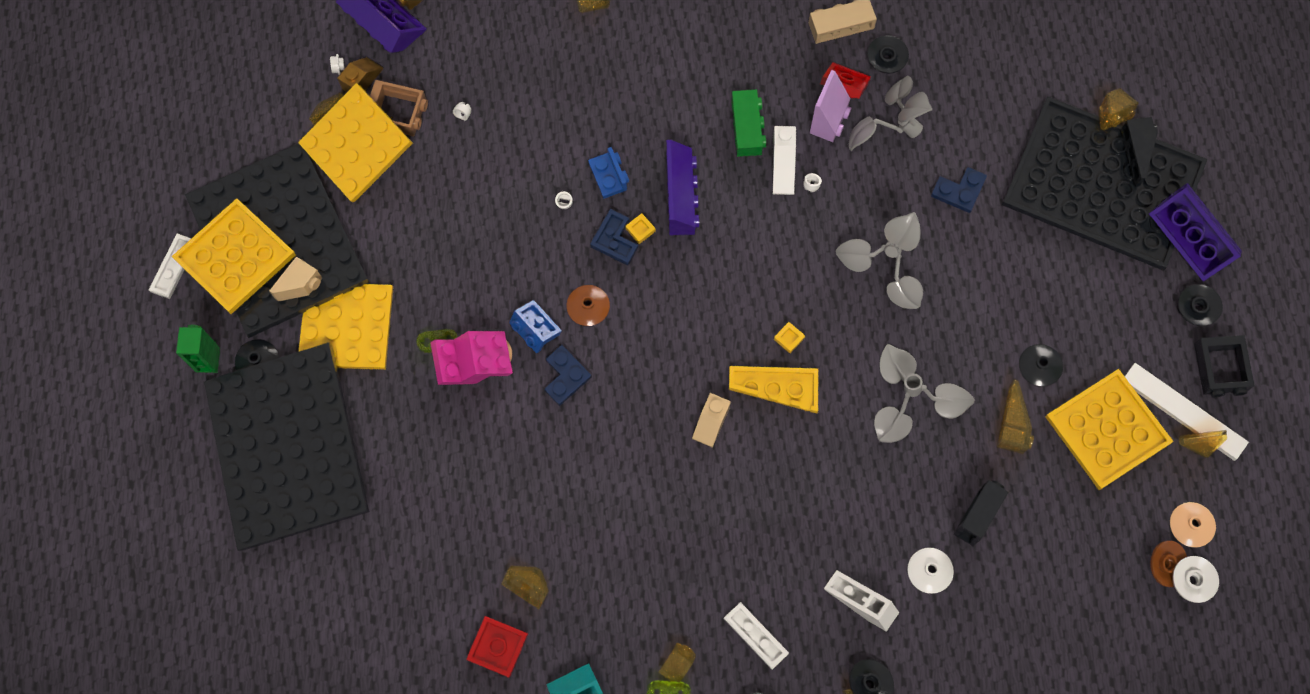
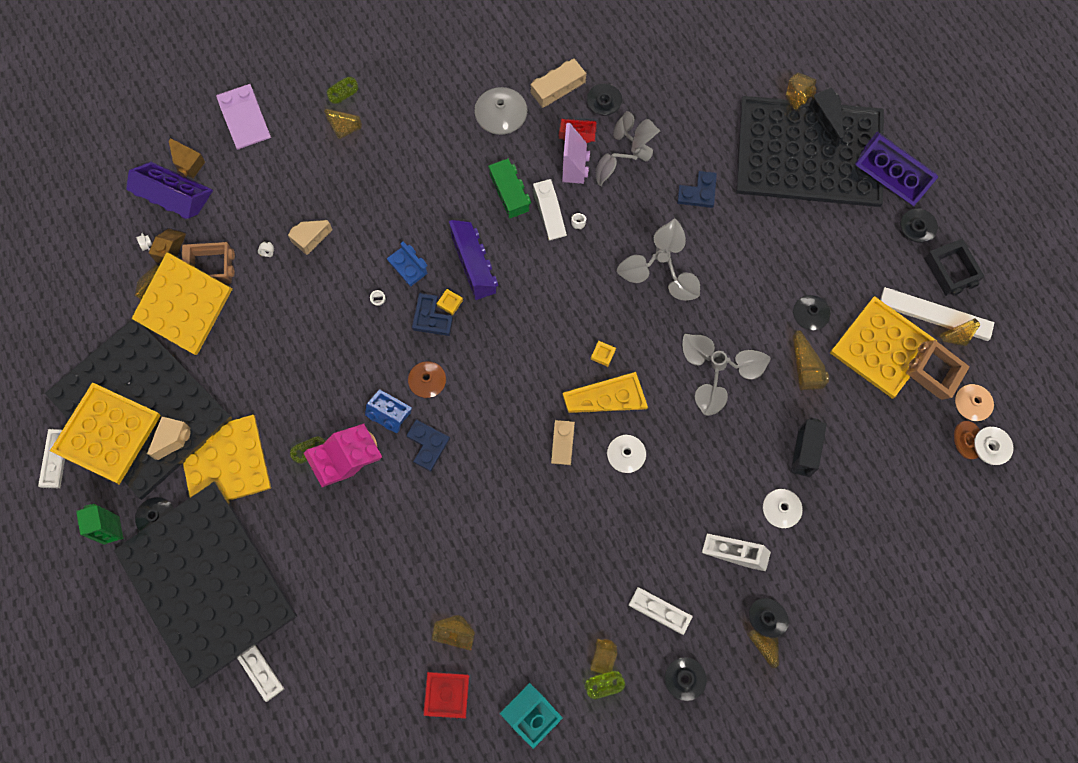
camera: 20 degrees left, 0 degrees up
(312, 559) = (260, 673): none -> white tile
(513, 108) = (309, 234): none -> tan slope
(765, 42) = (502, 118): none -> light grey dish
(773, 464) = (623, 462): none -> white dish
(1176, 489) = (953, 377): none -> medium nougat window

